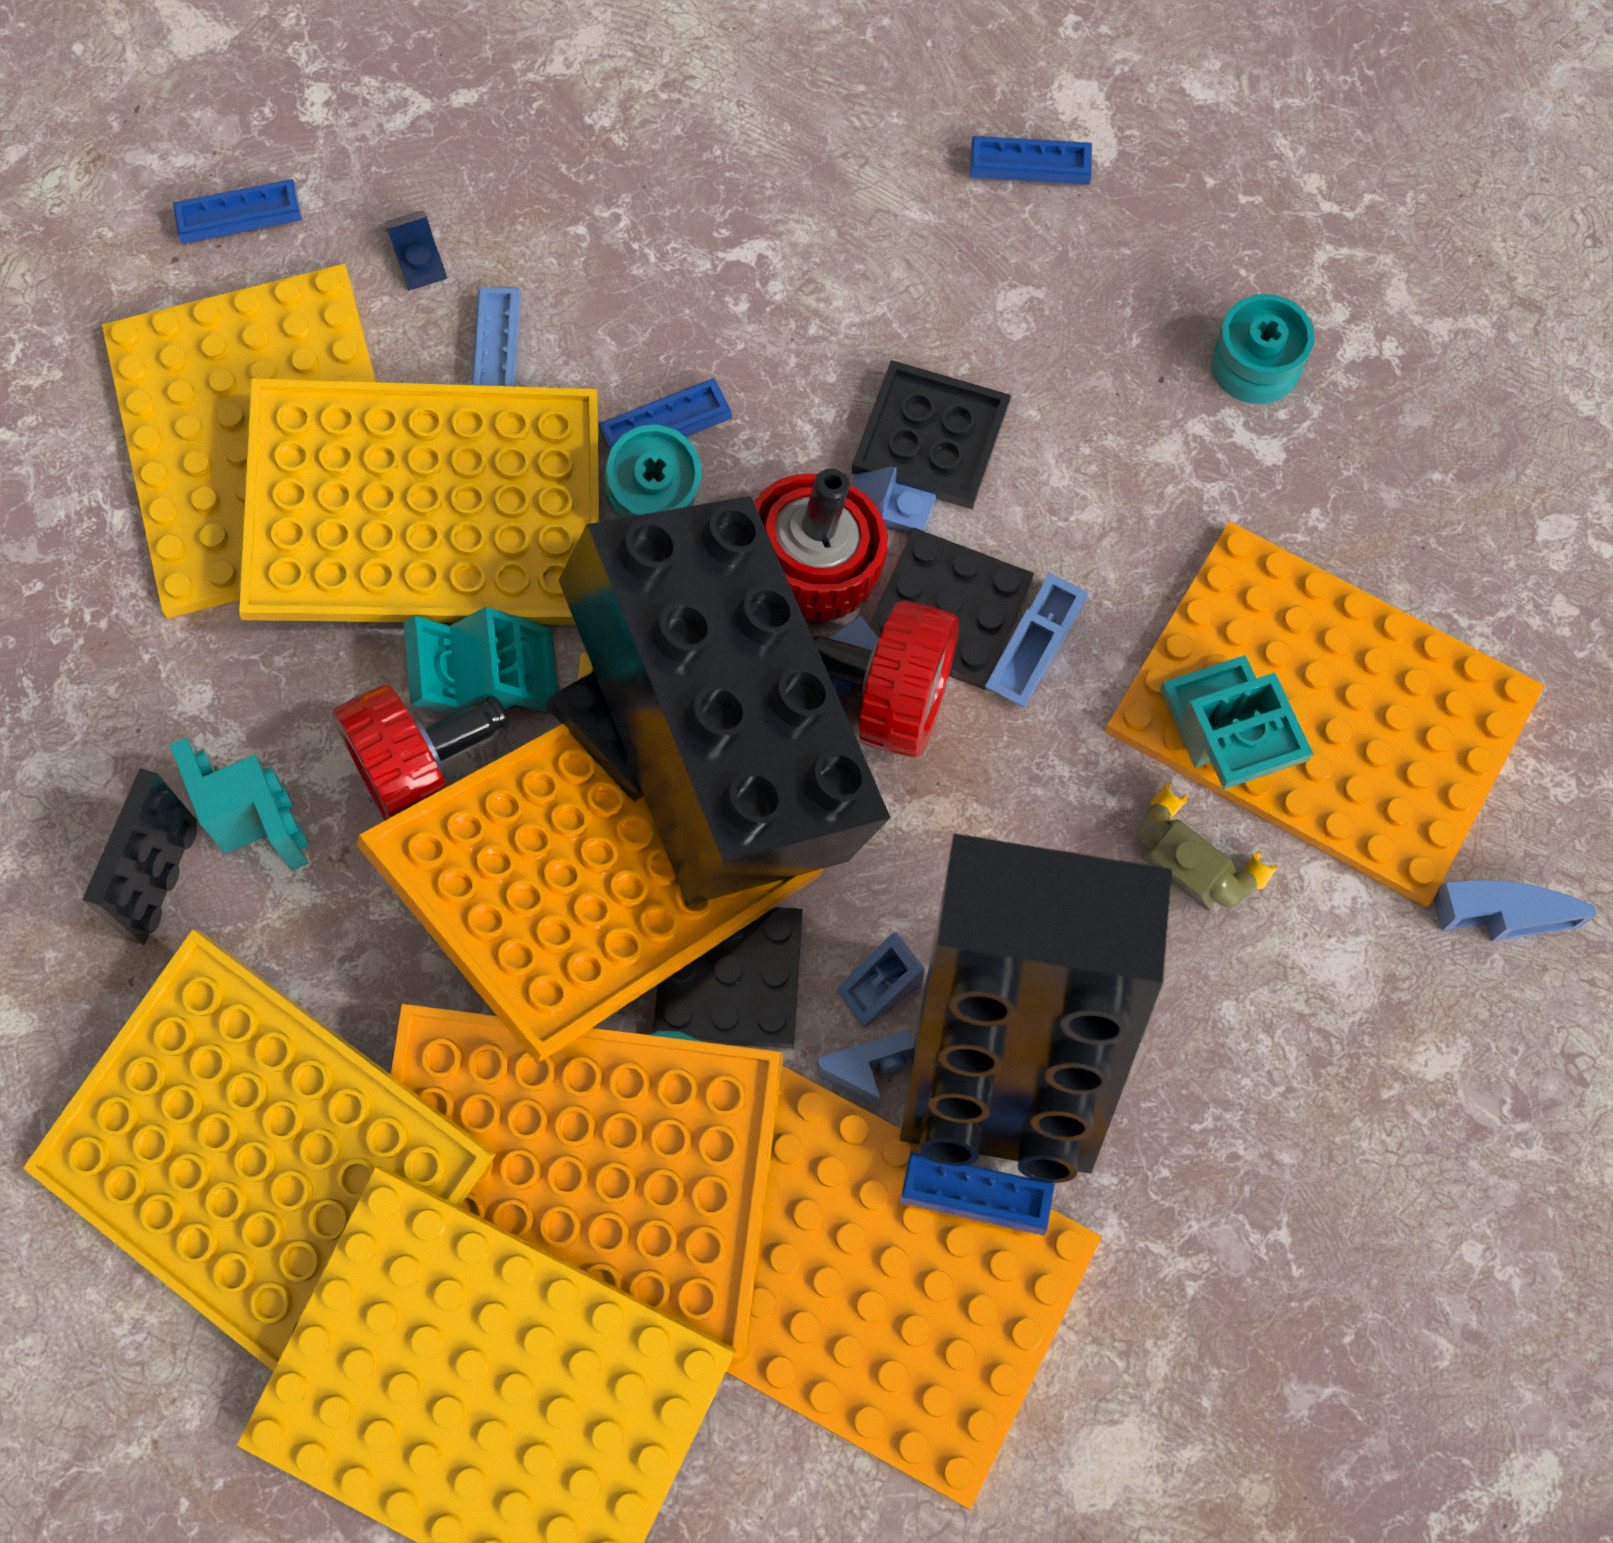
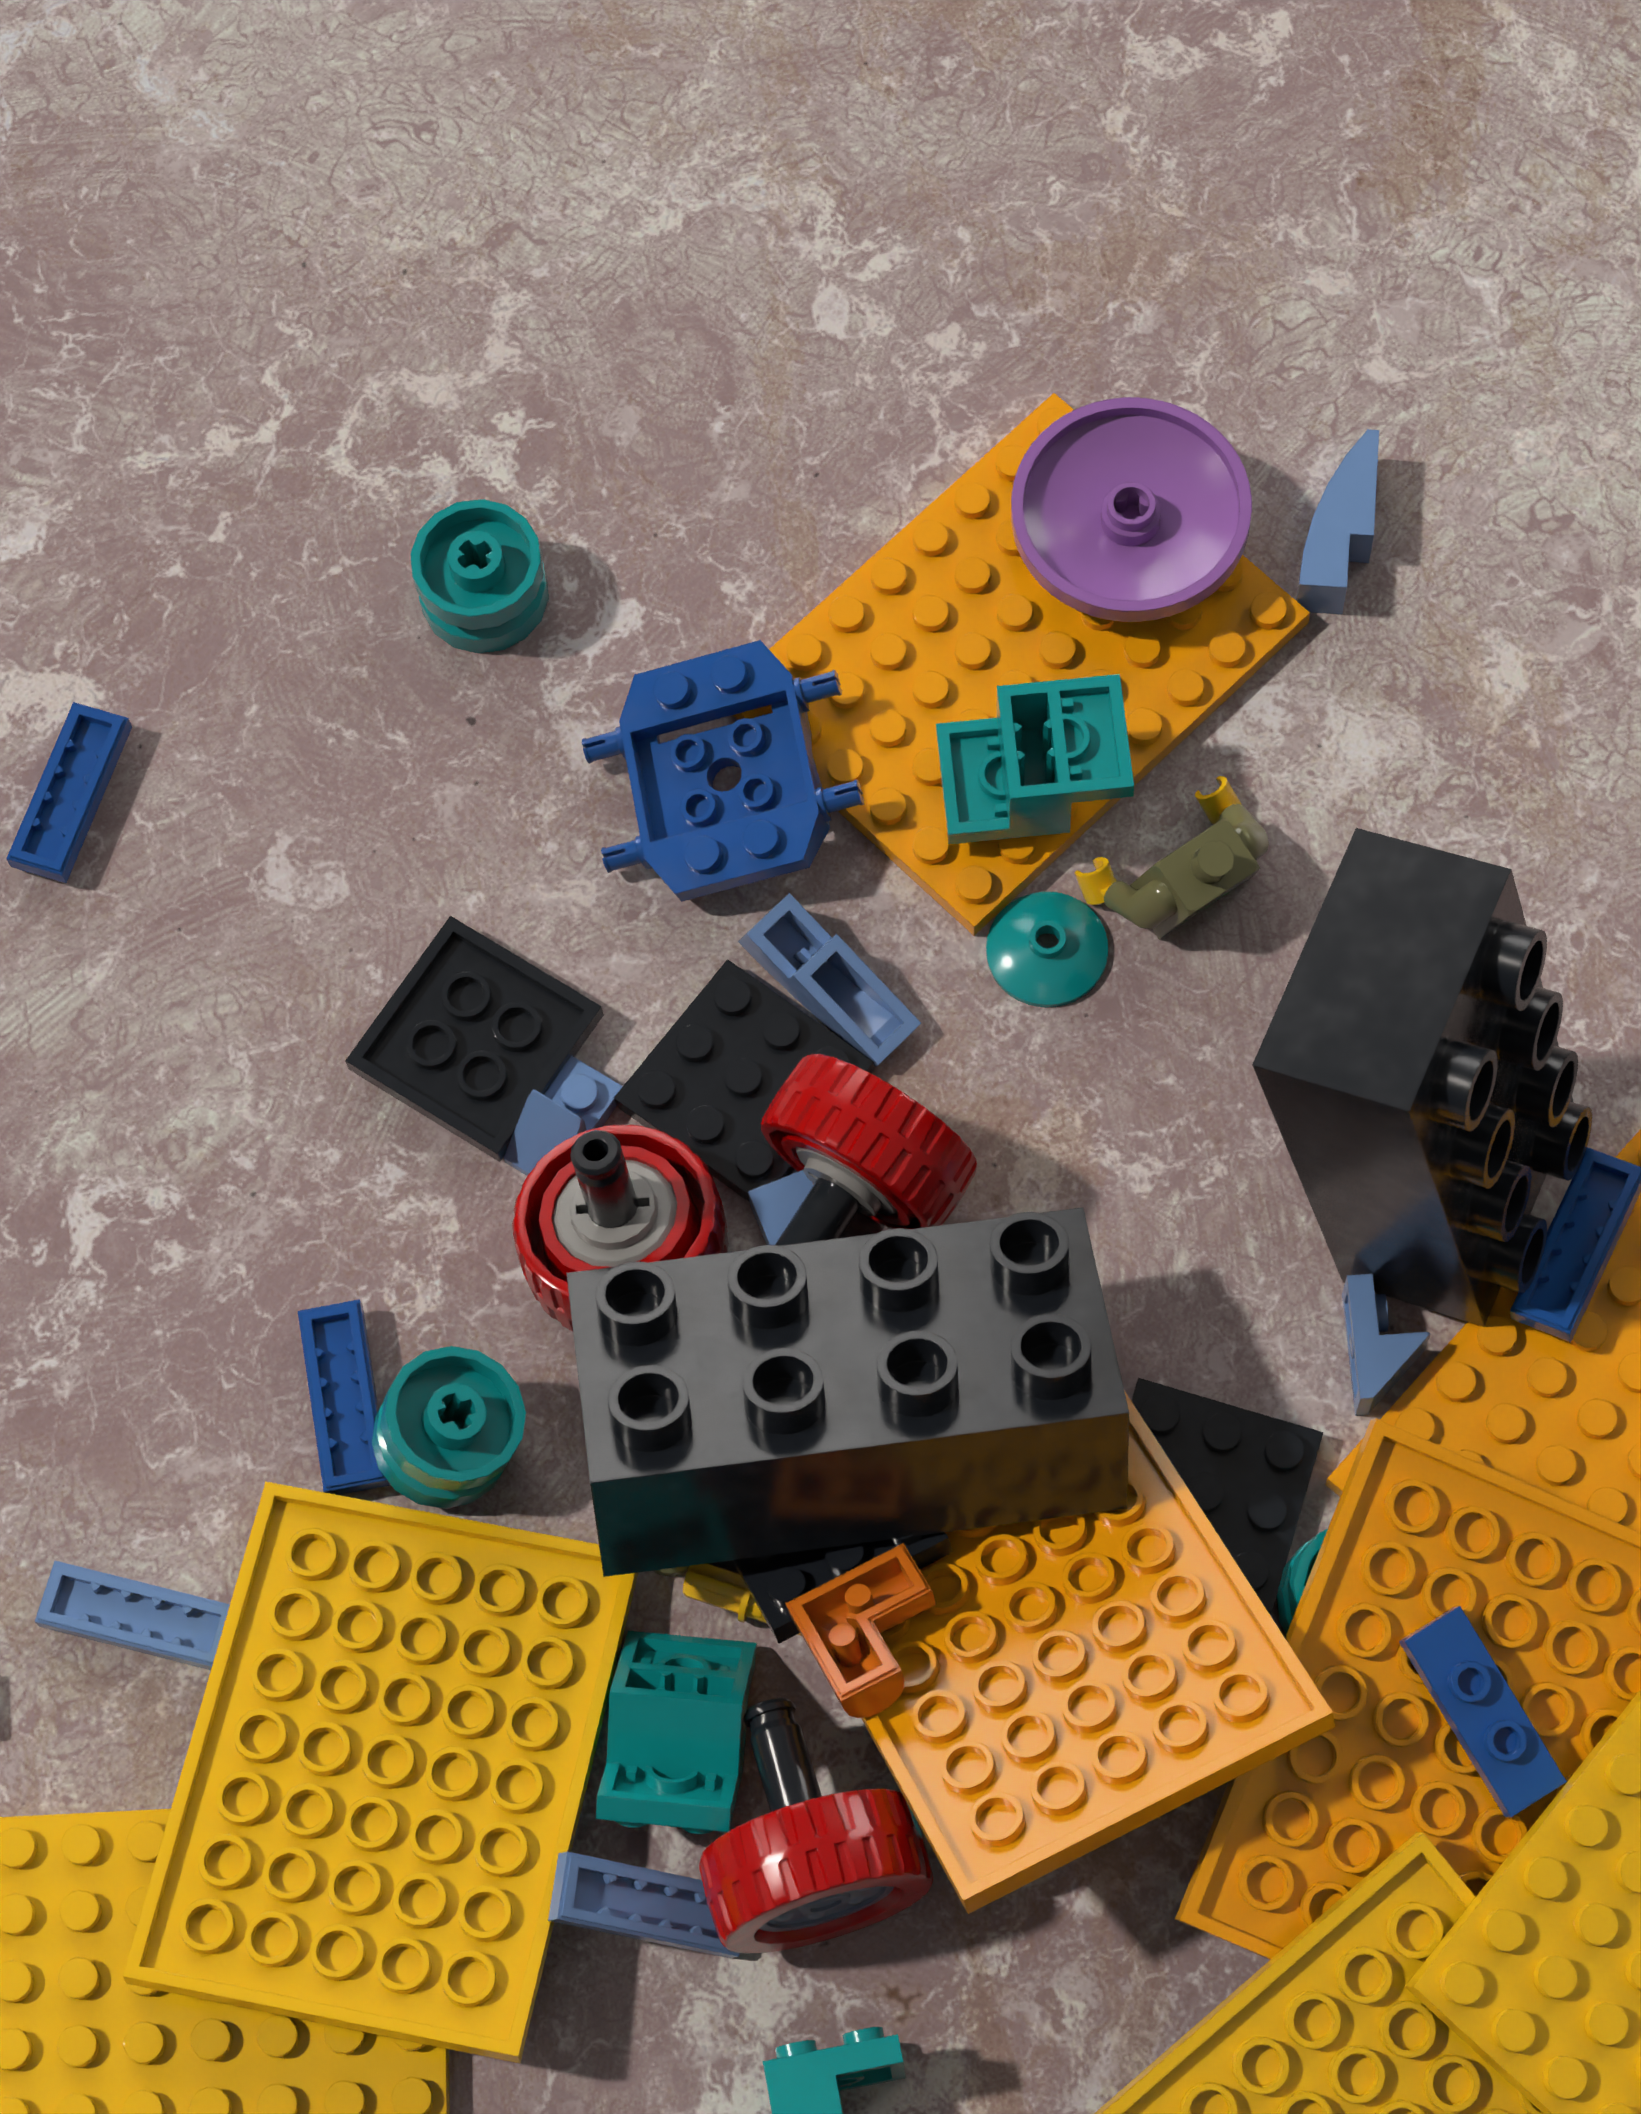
camera: 70 degrees left, 0 degrees up
(358, 651) = (634, 1903): none -> medium blue plate
(555, 732) = (845, 1624): none -> orange brick
(590, 1181) = (1482, 1711): none -> blue plate
(882, 980) = (1263, 1296): medium blue slope -> none
(1105, 800) = (1047, 974): none -> teal dish
(1120, 526) = (734, 837): none -> blue piece
(1461, 746) = (1131, 509): none -> medium lavender dish

